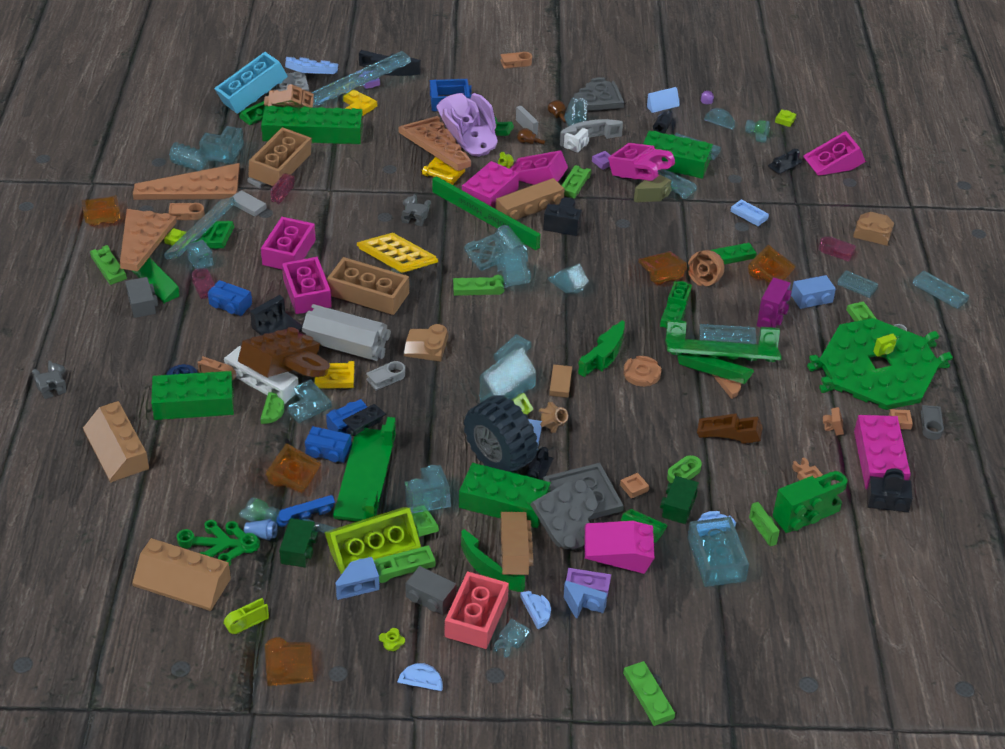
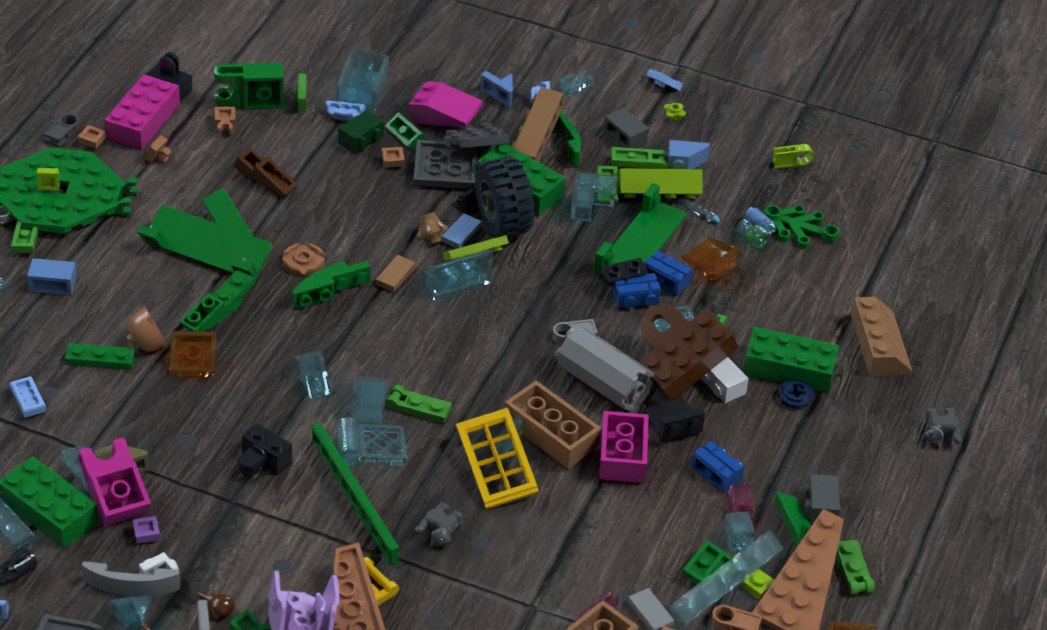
camera: 160 degrees left, 0 degrees up
(181, 574) = (838, 205): medium nougat slope -> none
(210, 365) = (760, 383): nougat piece -> none
(287, 242) = (624, 510): dark pink brick -> none
(288, 662) = (766, 122): clear orange slope -> none
(298, 543) = (728, 197): dark green brick -> none
(304, 510) = (711, 220): blue plate -> none
(339, 376) = (631, 340): yellow plate -> none
(427, 343) = (513, 353): medium nougat slope -> none
(476, 610) = (595, 98): coral brick -> none
(491, 183) = (326, 525): dark pink brick -> none
(505, 160) = (278, 564): lime plate -> none
(512, 344) = (425, 319): clear light blue tile -> none
(530, 199) = (286, 493): medium nougat brick -> none
(540, 167) = (245, 537): dark pink slope -> none
(575, 181) = (206, 508): bright green plate -> none
(590, 579) = (491, 102): medium lavender plate -> none
(649, 693) = (486, 25): bright green plate -> none
(683, 468) = (336, 155): bright green plate -> none
(724, 333) = (186, 263): clear light blue plate -> none
(770, 264) = (74, 316): clear orange slope -> none
(774, 303) = (116, 261): magenta brick -> none

